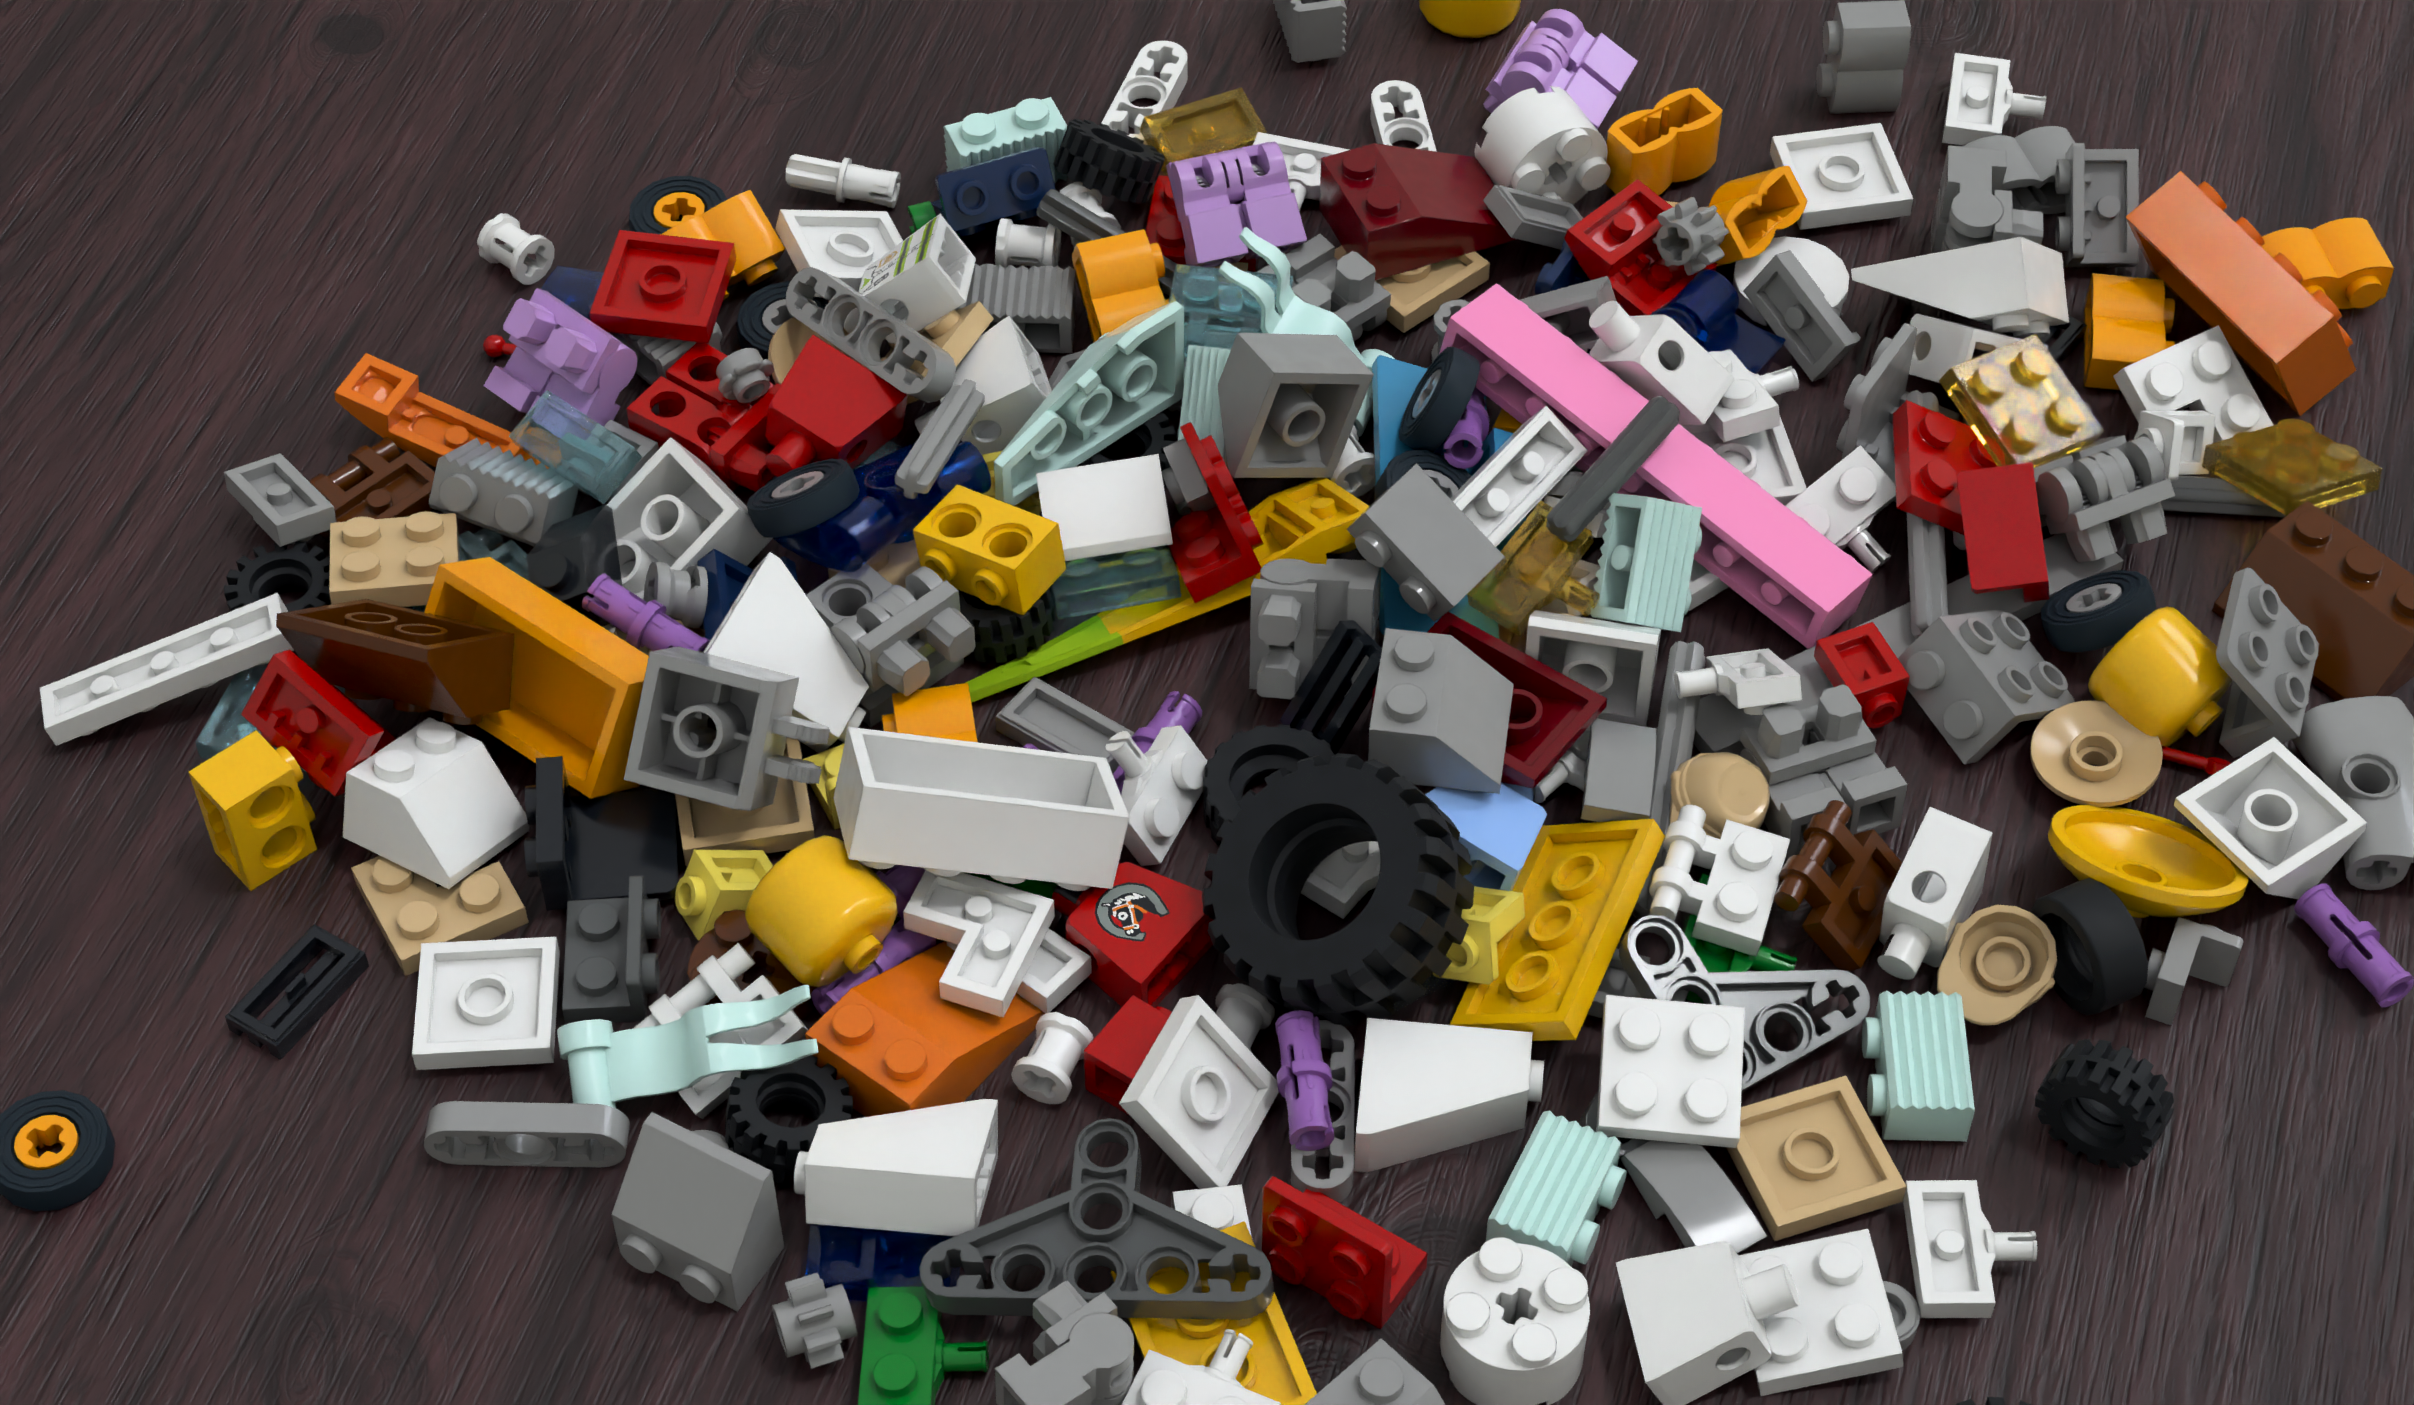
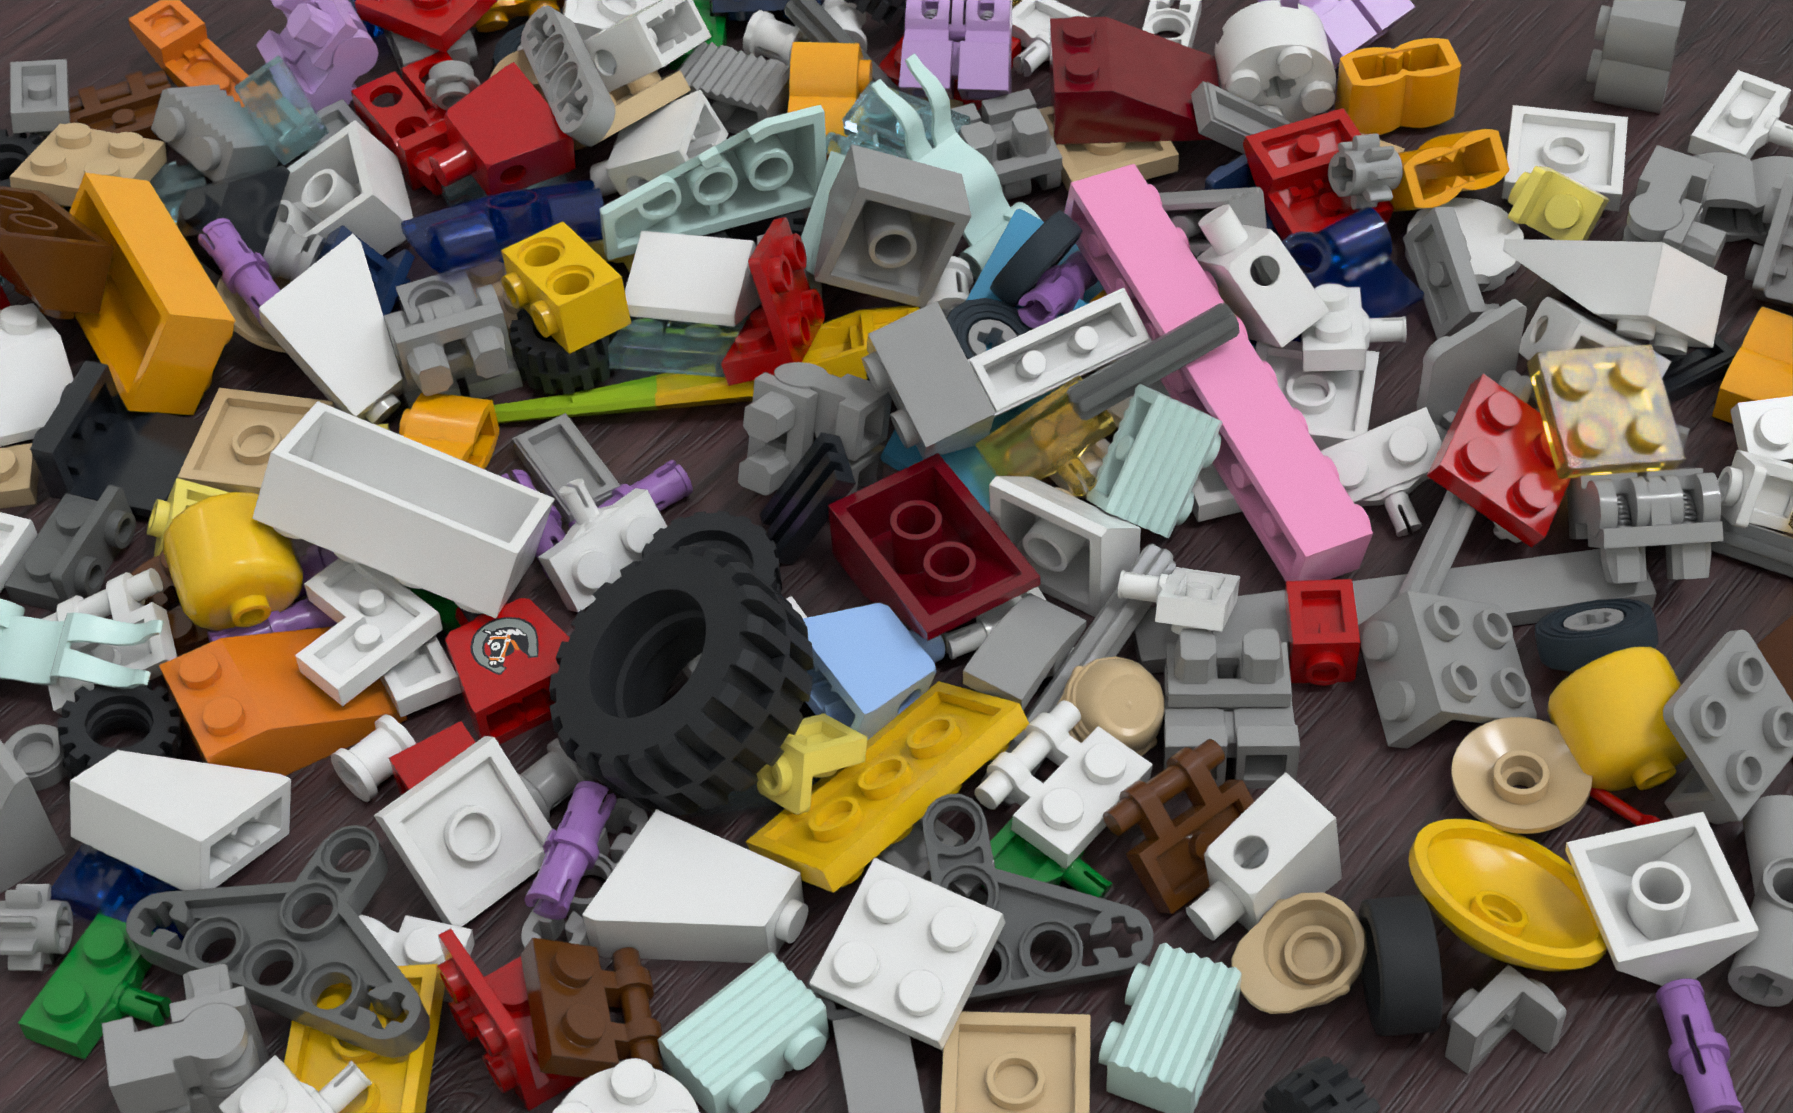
camera: 25 degrees right, 0 degrees up
(752, 720) = (232, 374): light grey hinge -> none
(803, 498) = (432, 200): black bush -> none
(939, 439) = (567, 177): light grey axle -> none
(1407, 1210) = (571, 1009): none -> reddish brown plate
(1439, 713) = (858, 542): light grey slope -> none
(1863, 225) = (1555, 204): none -> light yellow bracket
(2003, 530) = (1526, 528): red panel -> none

